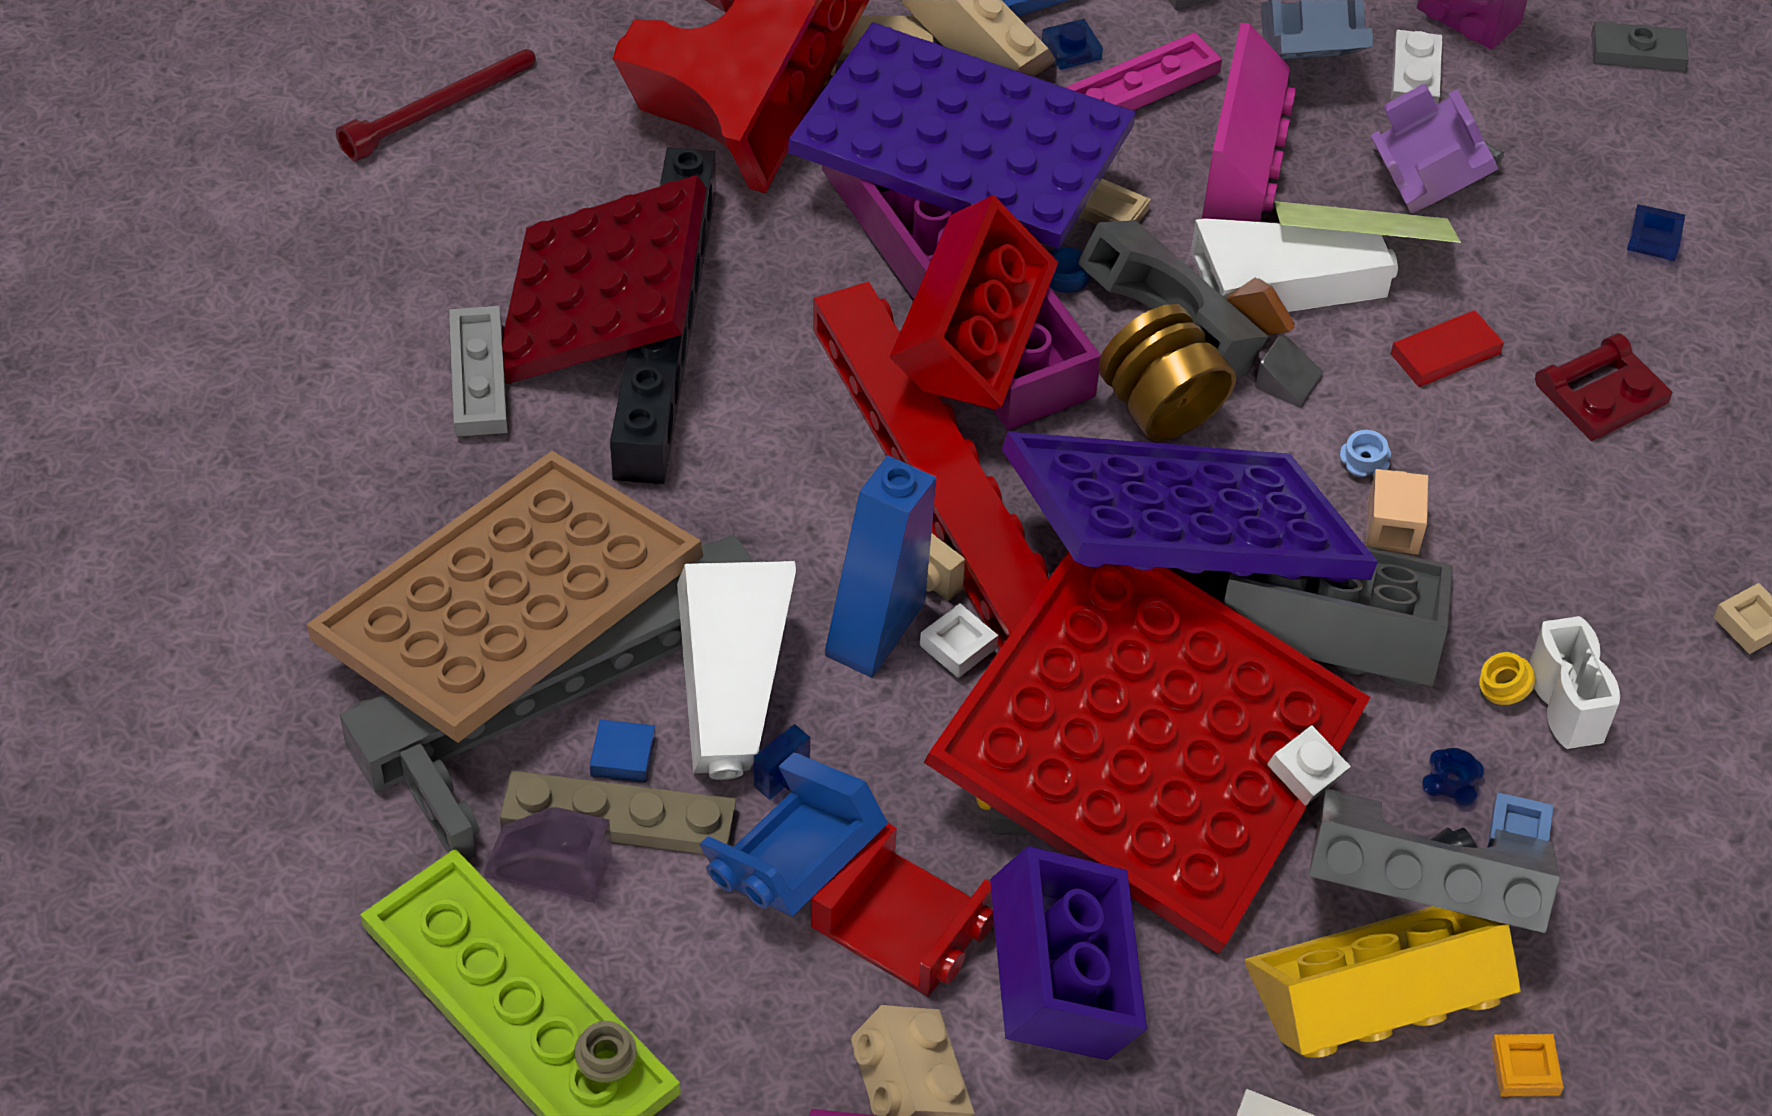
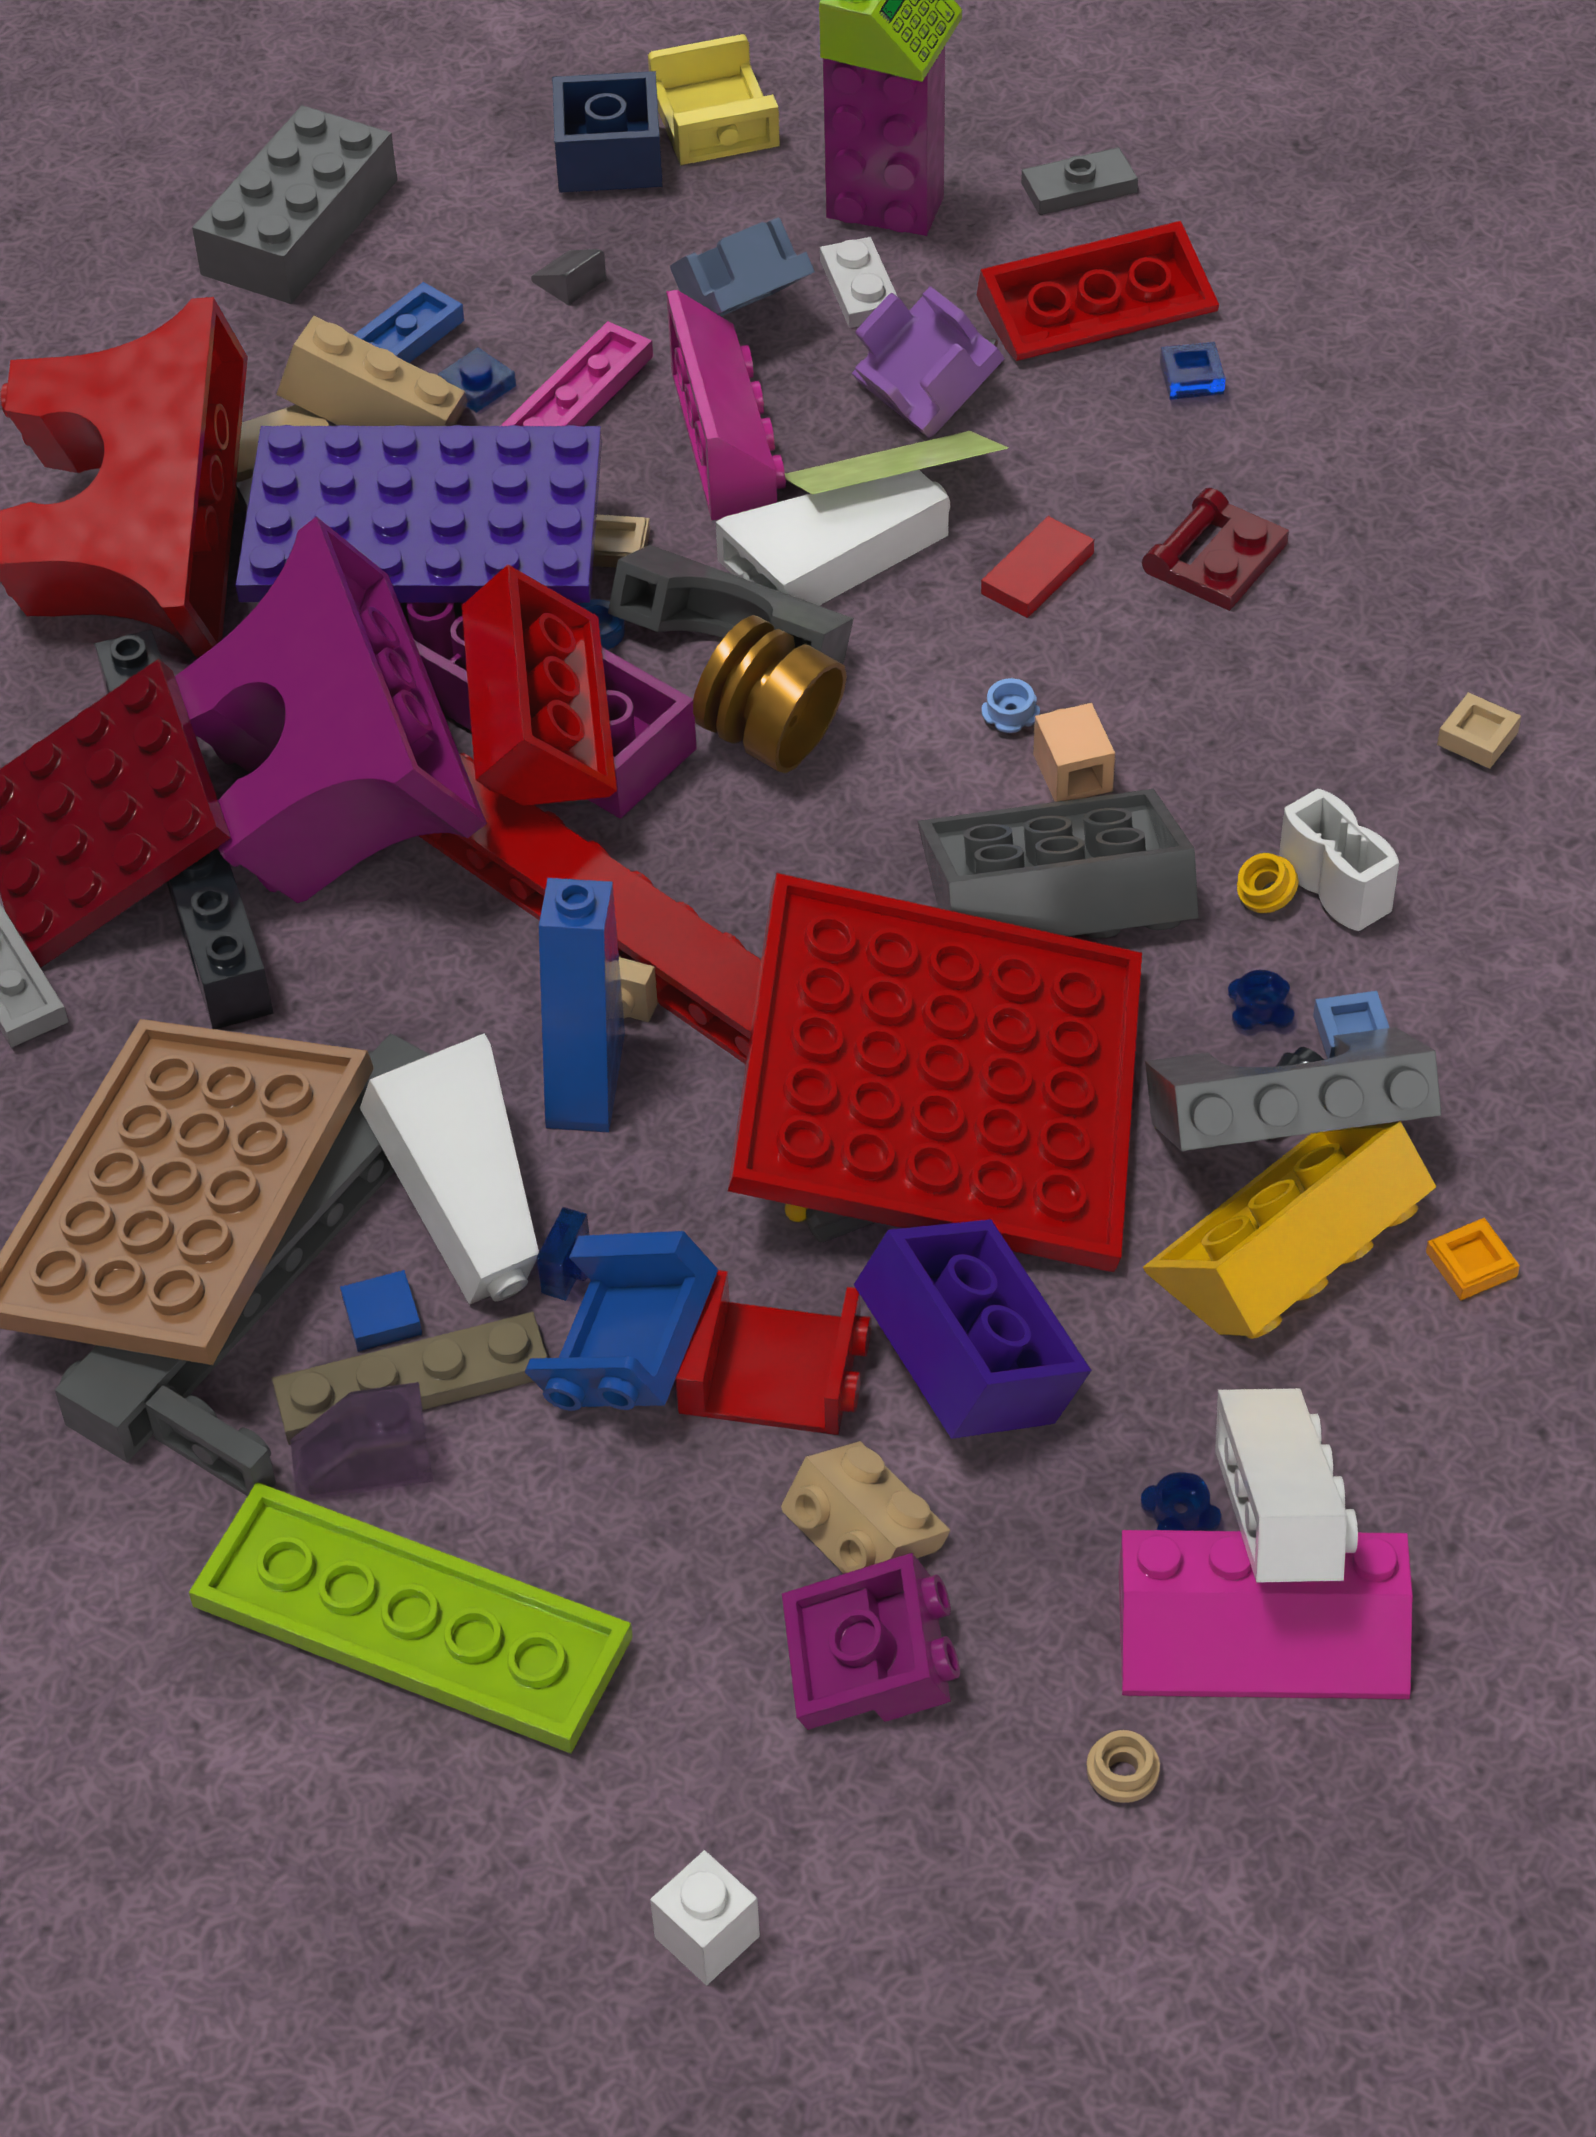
camera: 20 degrees left, 0 degrees up
(600, 1037) = (533, 1606): dark tan plate -> none
(809, 267) = (329, 721): none -> magenta piece
(958, 640) = (685, 1056): white plate -> none
(1186, 508) = (866, 825): dark purple plate -> none
(1262, 307) = (833, 587): dark orange slope -> none
(1287, 372) = (887, 650): flat silver slope -> none
(1308, 765) = (1116, 1044): white plate -> none
(1607, 140) = (1095, 291): none -> red slope

